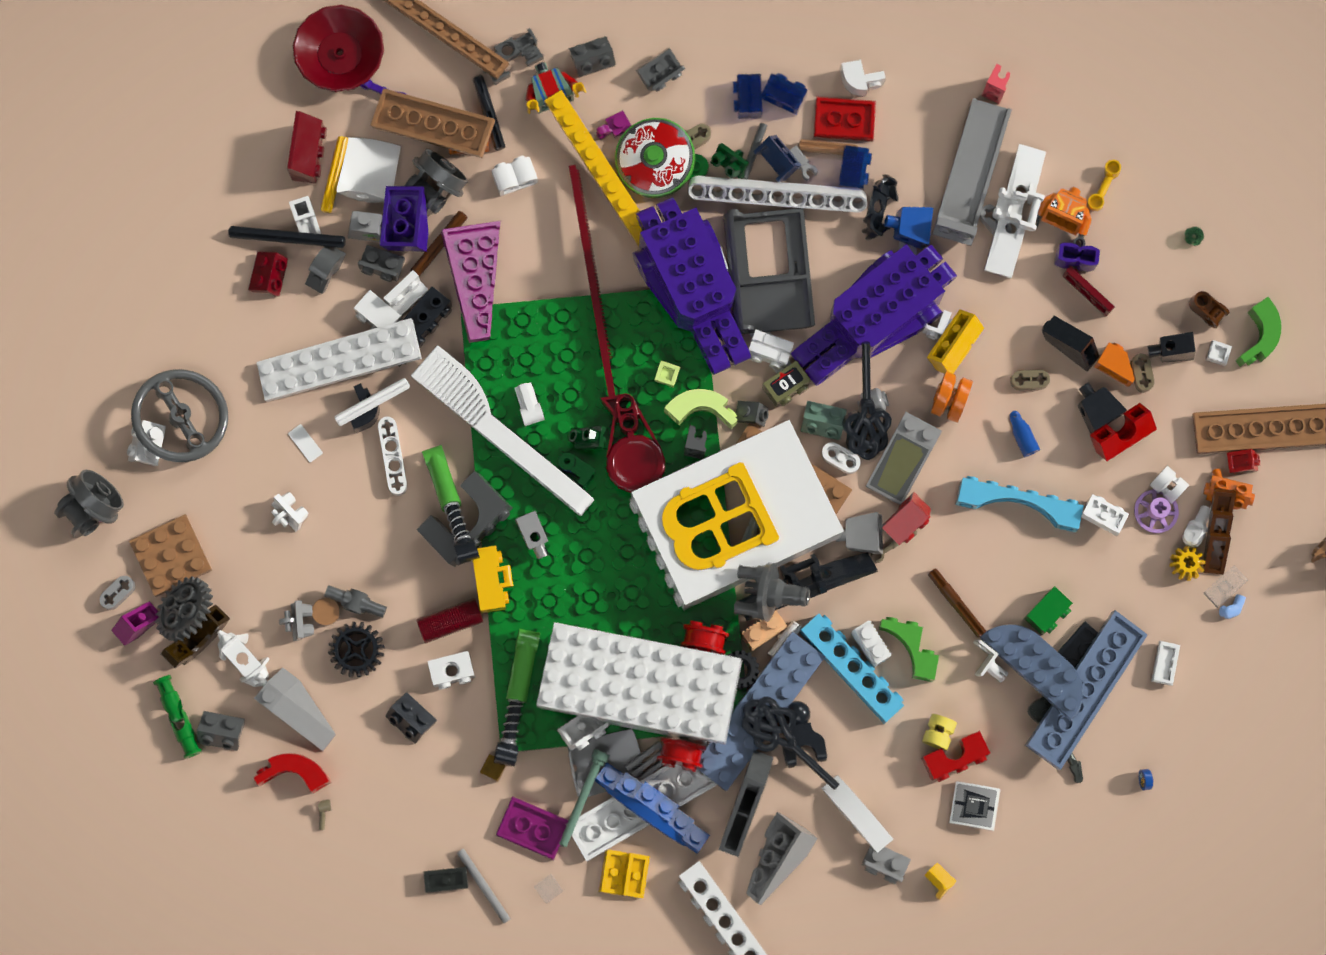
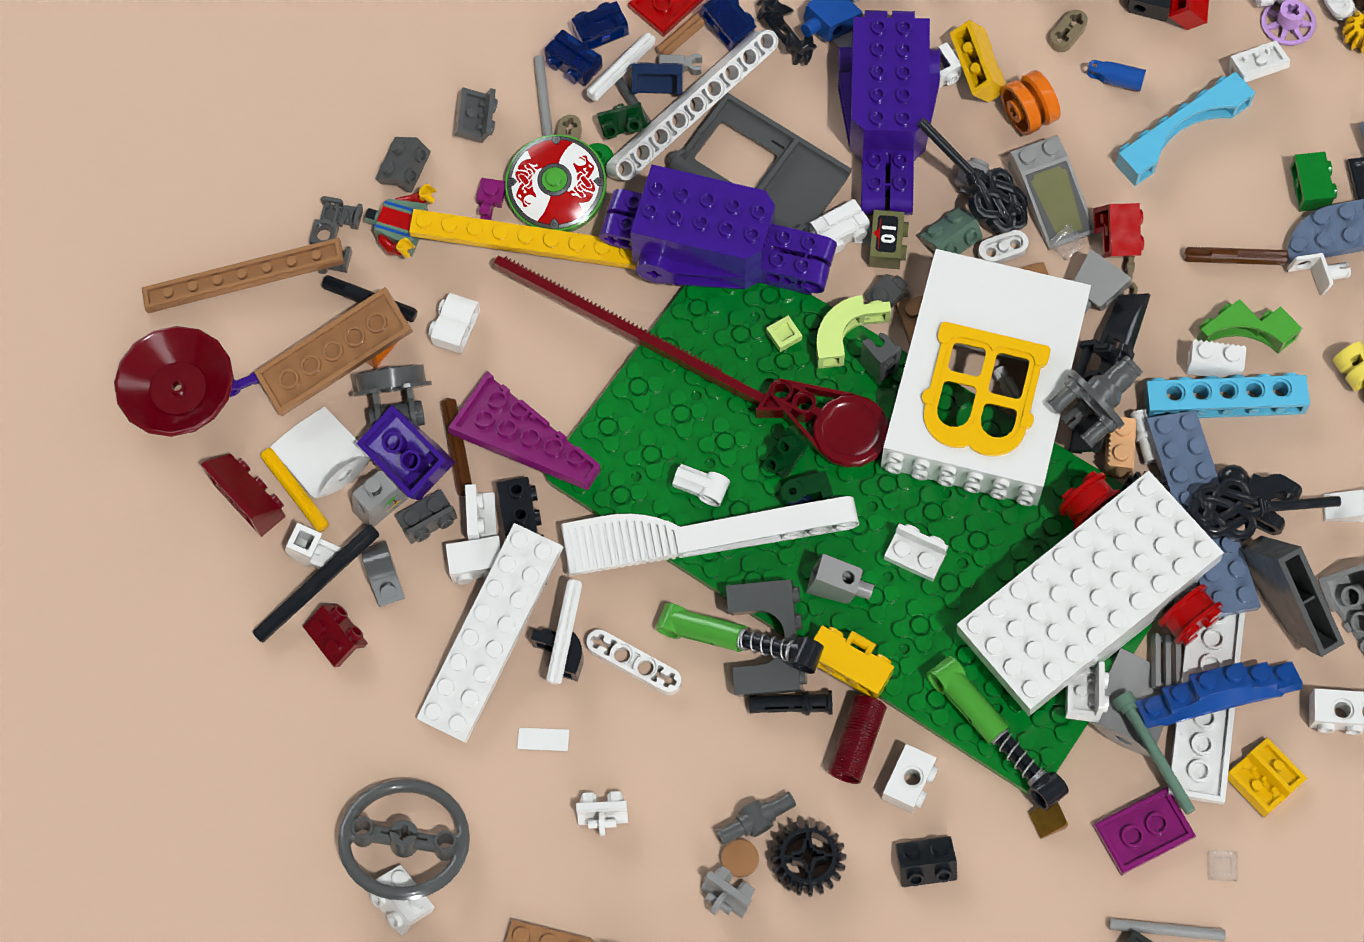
camera: 40 degrees left, 10 degrees down
(448, 573) = (804, 703): none -> black pin
(591, 564) = (916, 552): none -> white bracket
(708, 101) = (543, 95): none -> light grey bar
(767, 129) = (621, 66): none -> white axle
(877, 493) = (1066, 242): none -> clear tile

